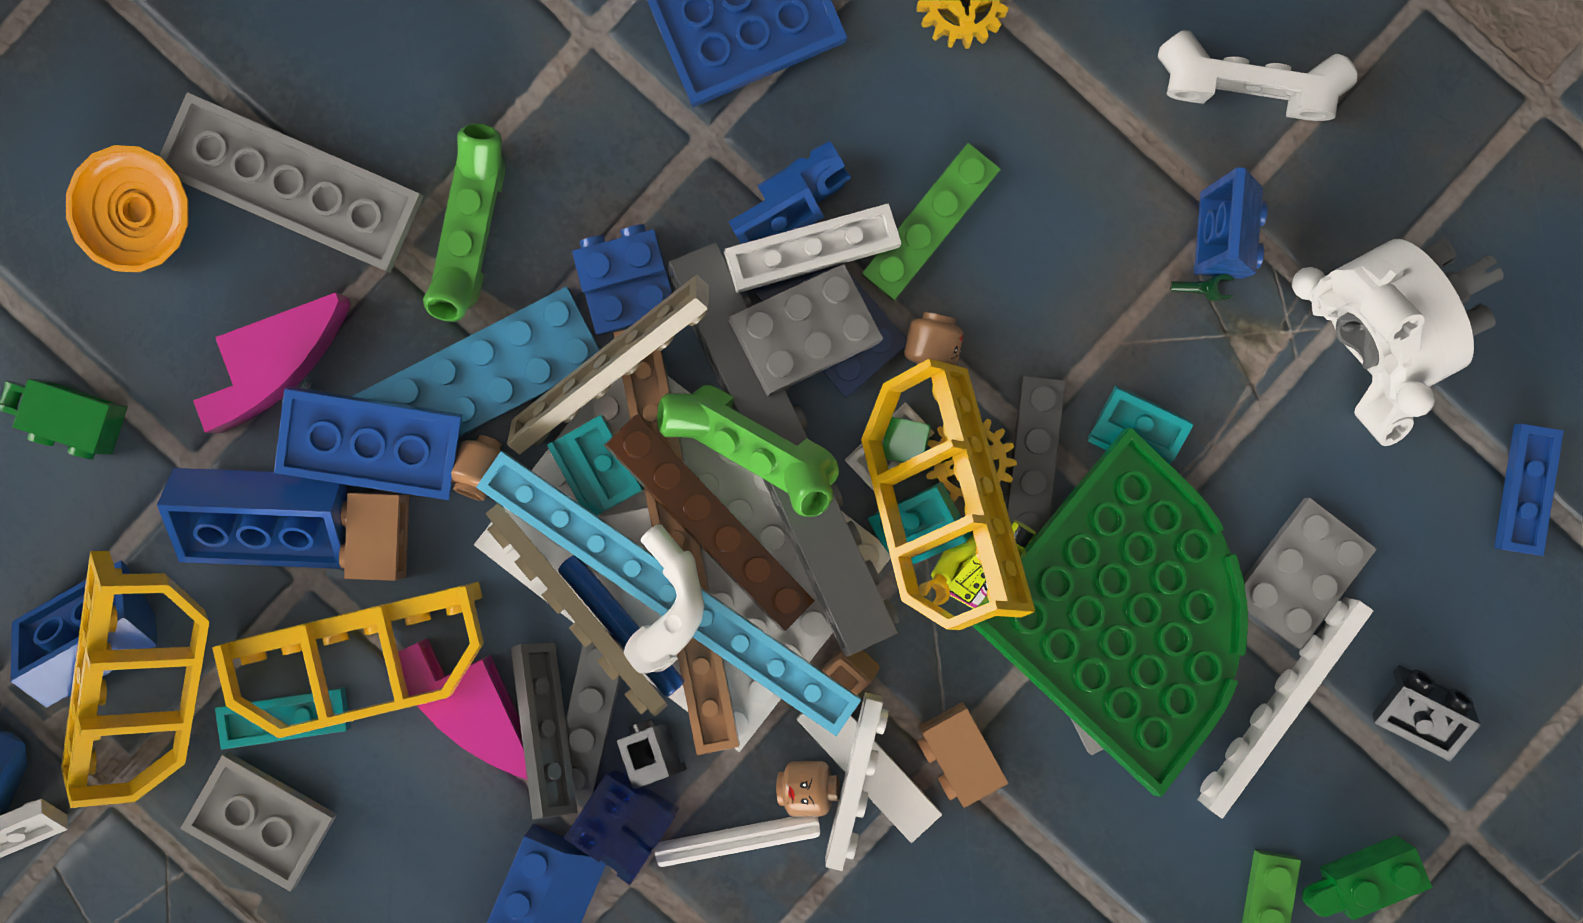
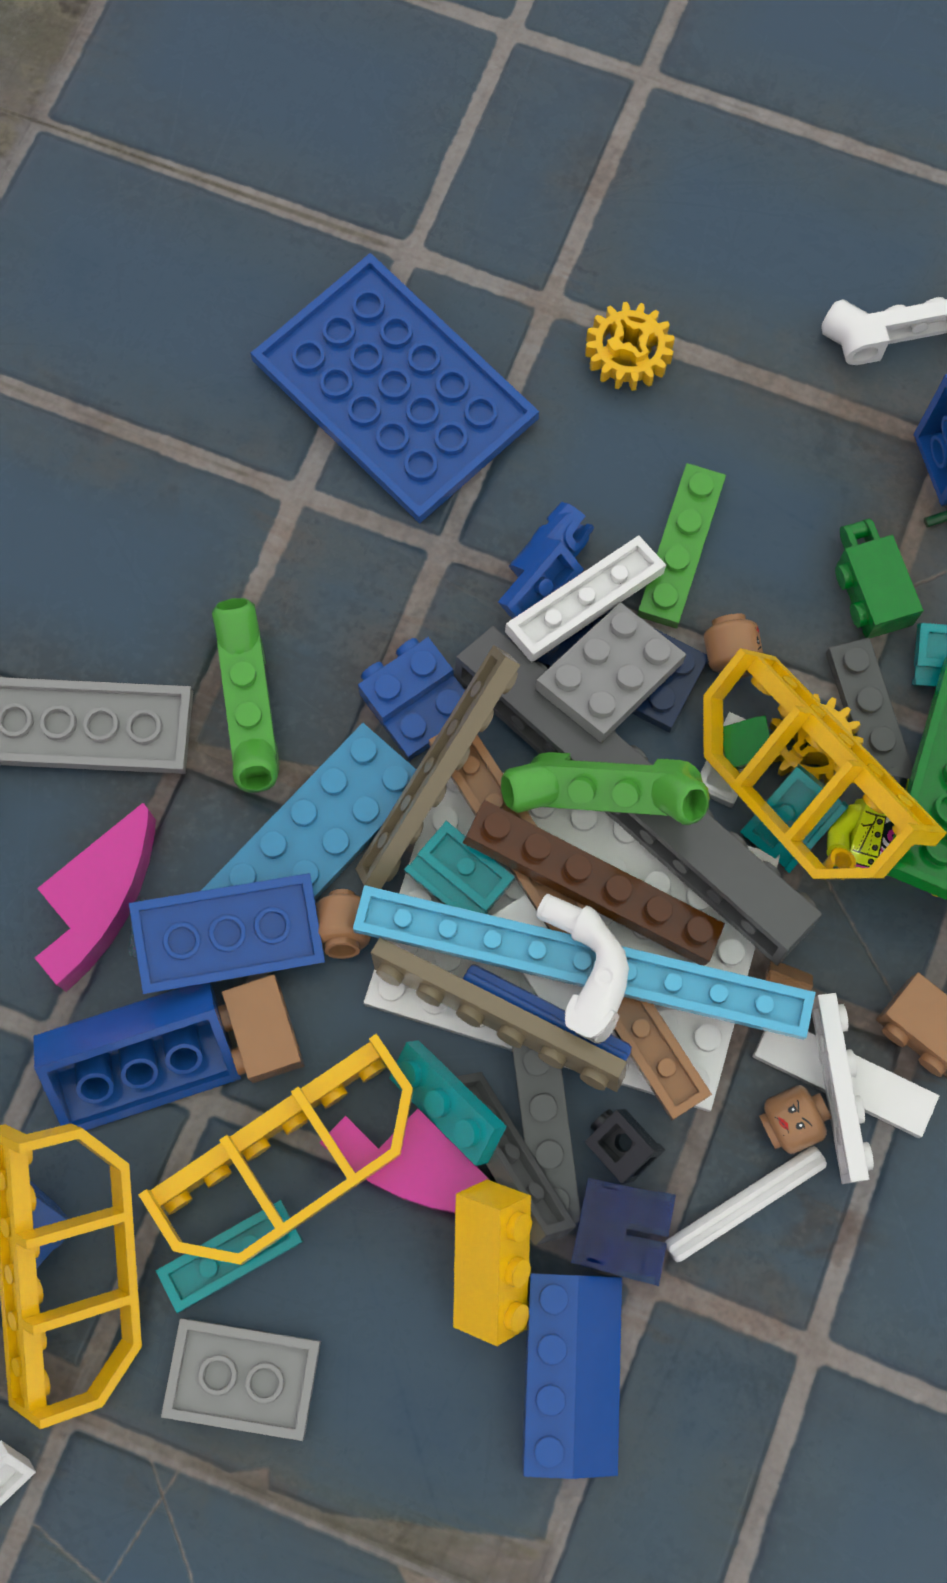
camera: 25 degrees left, 15 degrees down
(493, 815) = (492, 1261): none -> yellow brick
(509, 666) = (450, 1104): none -> teal plate
(1094, 328) = (876, 581): none -> green brick

